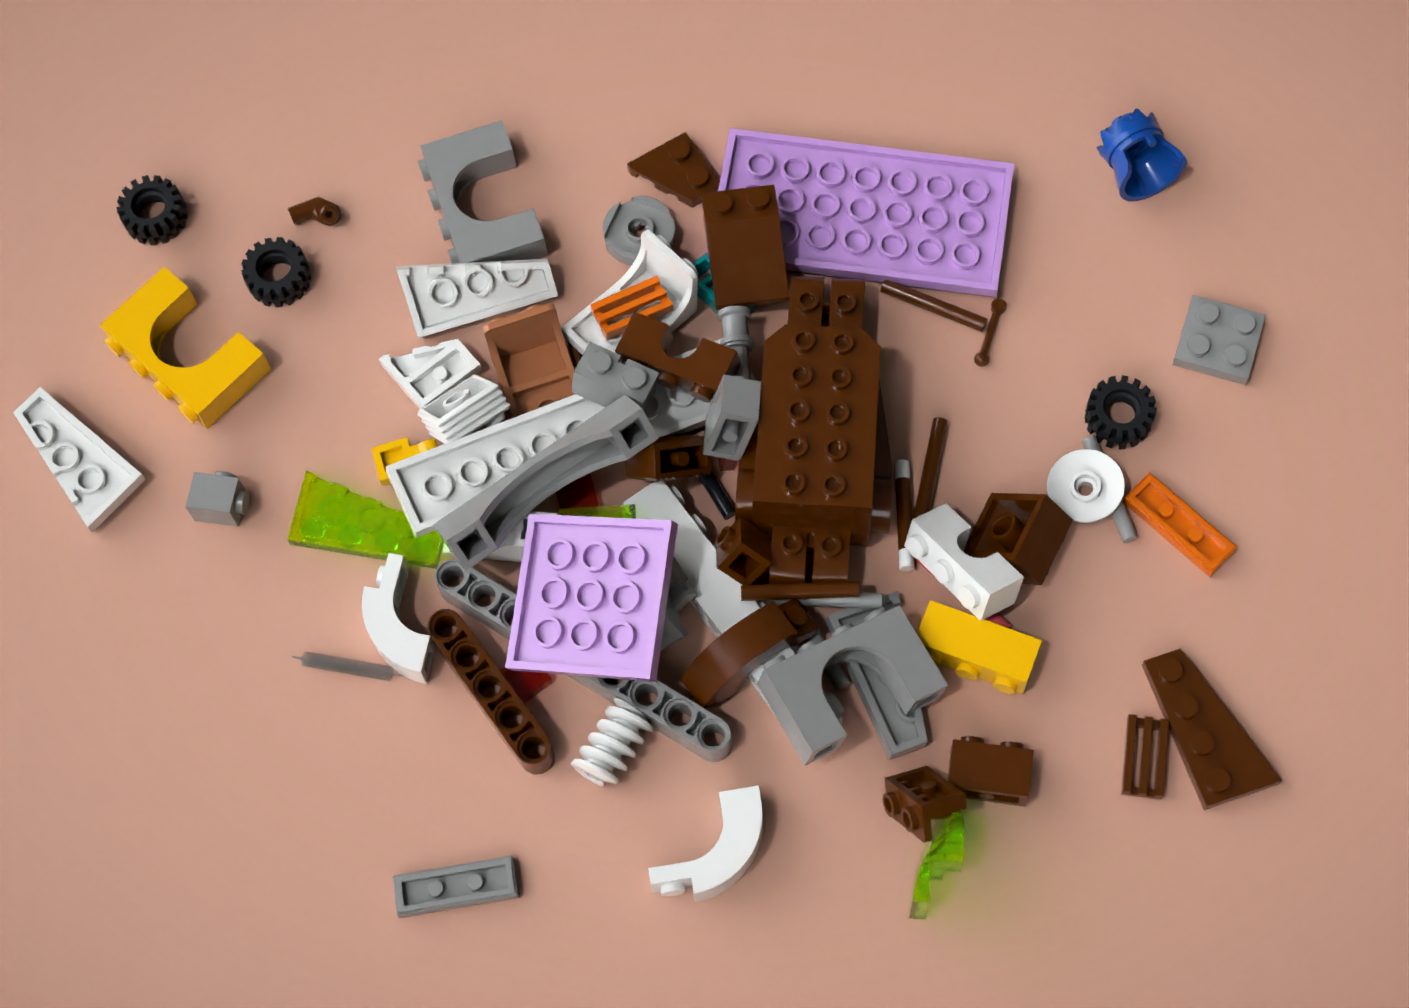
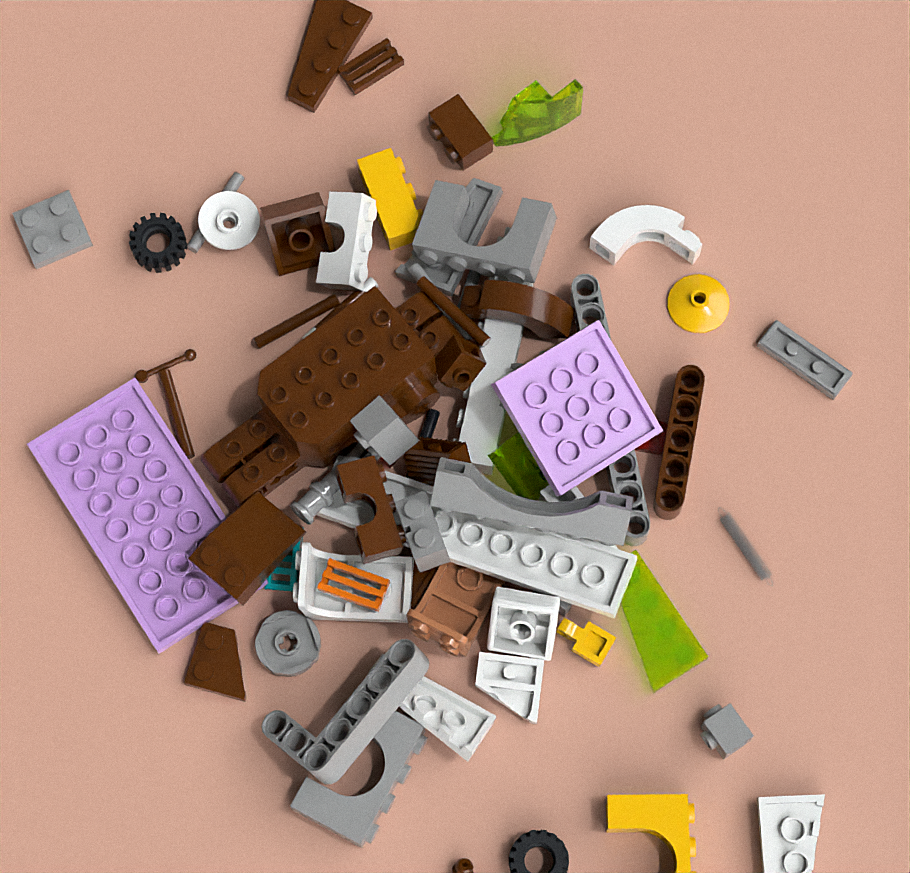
camera: 135 degrees left, 5 degrees up
(400, 647) = (706, 524): white arch -> none
(508, 172) = (356, 721): none -> light grey beam
(609, 862) = (695, 316): none -> yellow dish
(611, 743) = (644, 340): white piece -> none
(920, 796) = (513, 145): reddish brown bracket -> none
(1179, 524) = (204, 156): orange tile -> none

